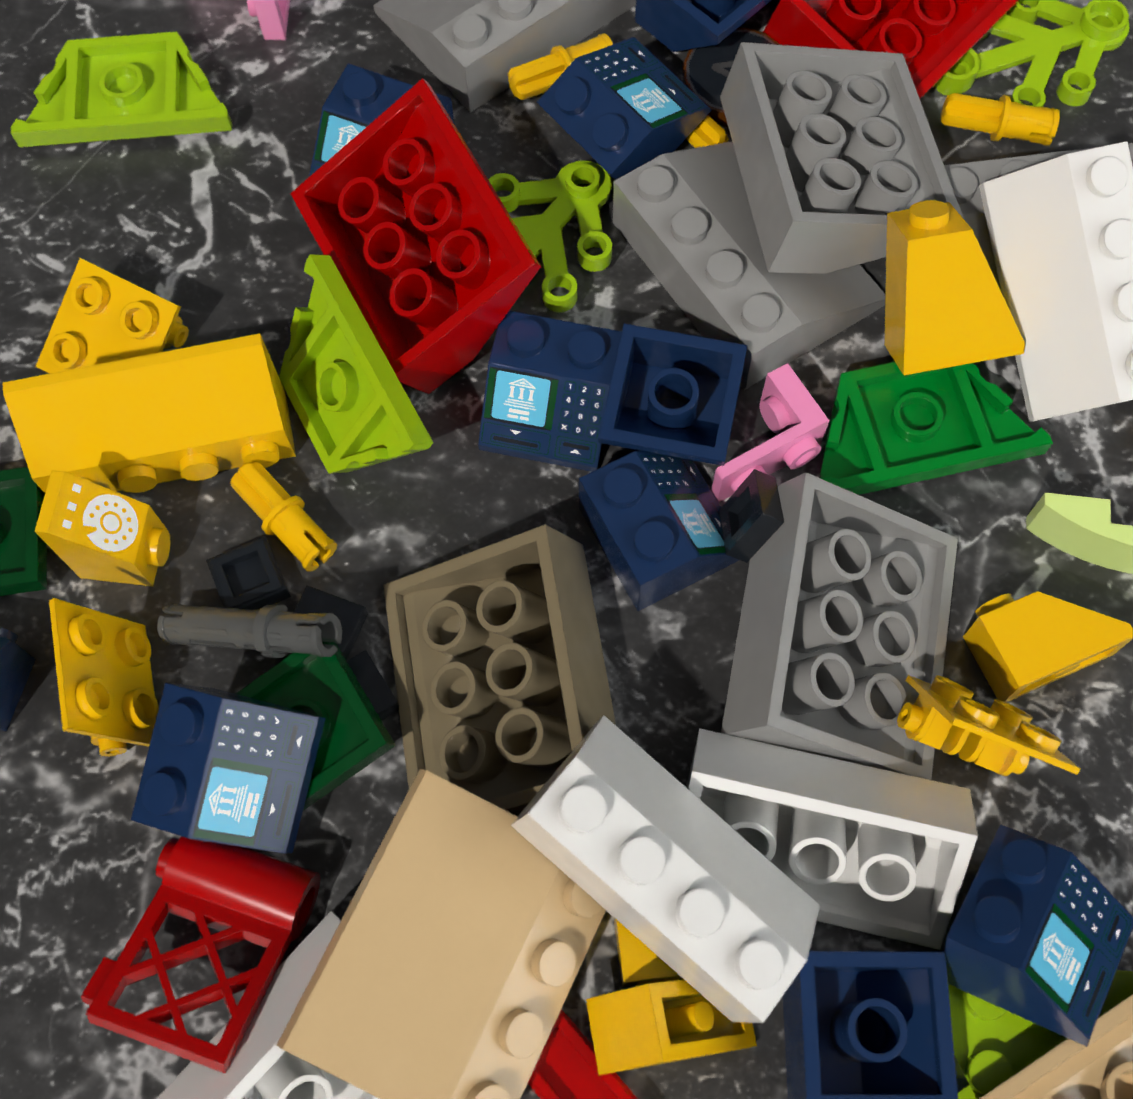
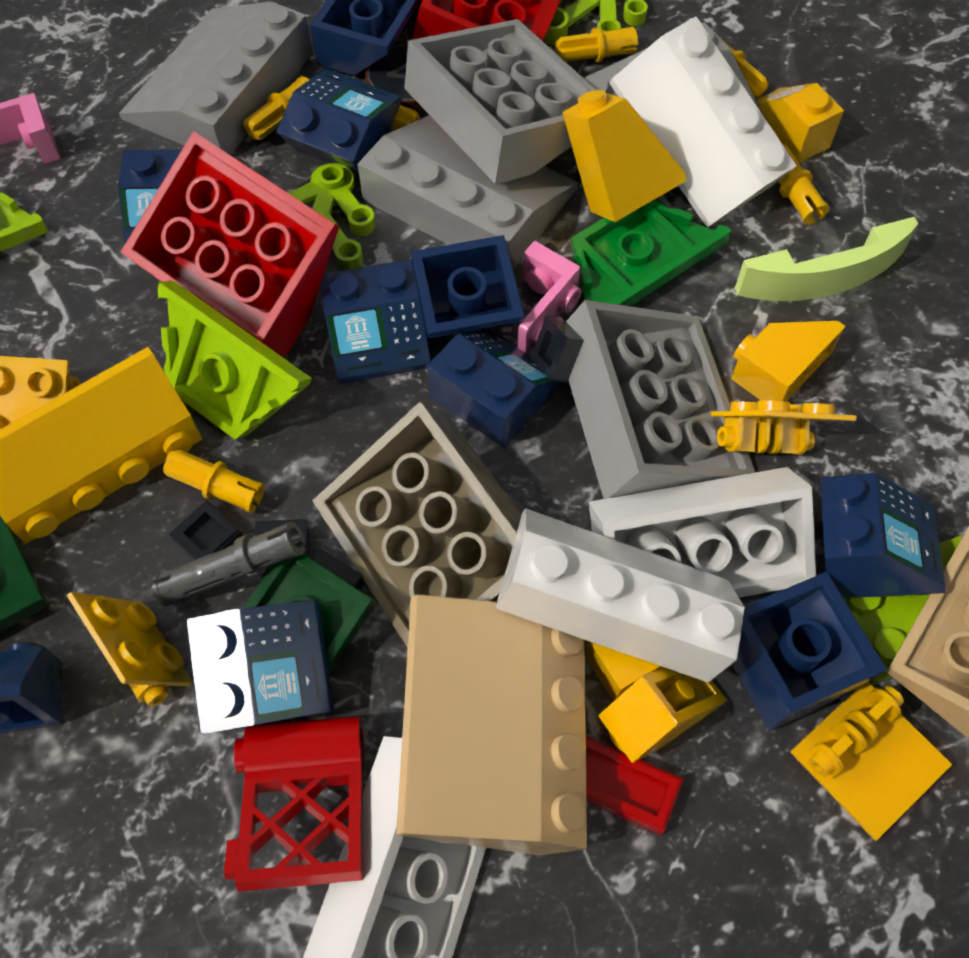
camera: 25 degrees left, 5 degrees down
(102, 531) = (81, 540): yellow slope -> none

